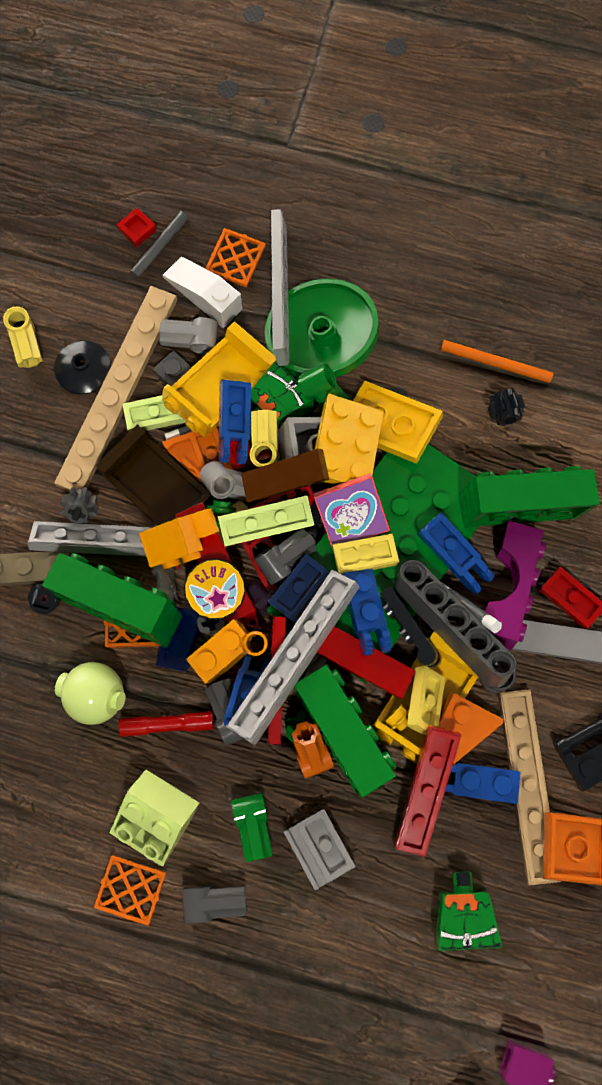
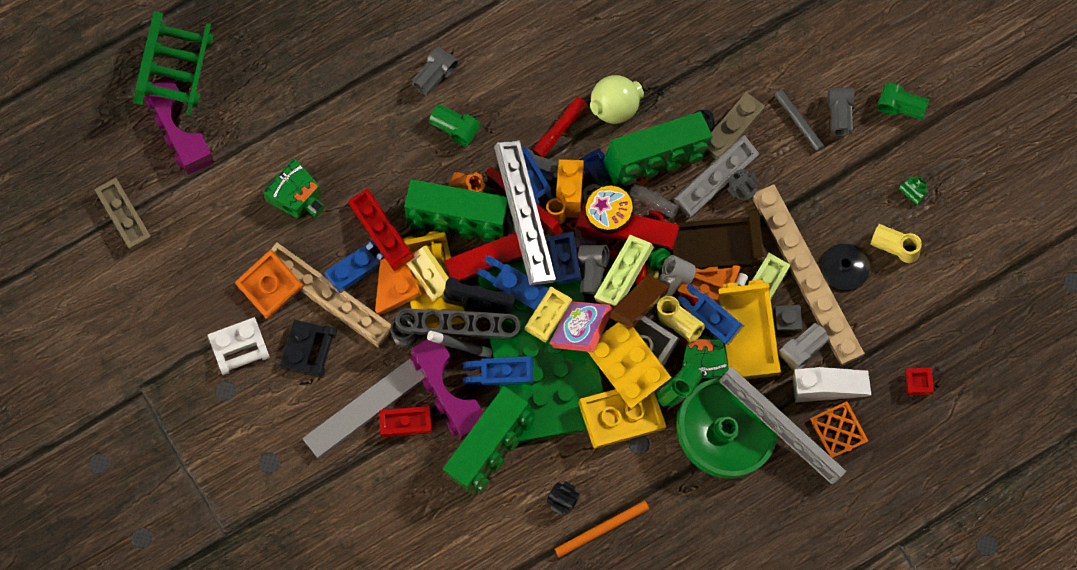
camera: 135 degrees right, 5 degrees down
(123, 912) = (502, 28): orange window -> none
(153, 817) = (511, 77): yellowish green slope -> none
(159, 244) = (894, 388): dark grey bar -> none
(178, 539) = (658, 211): light orange hinge -> none
(319, 849) = (408, 149): light grey plate -> none

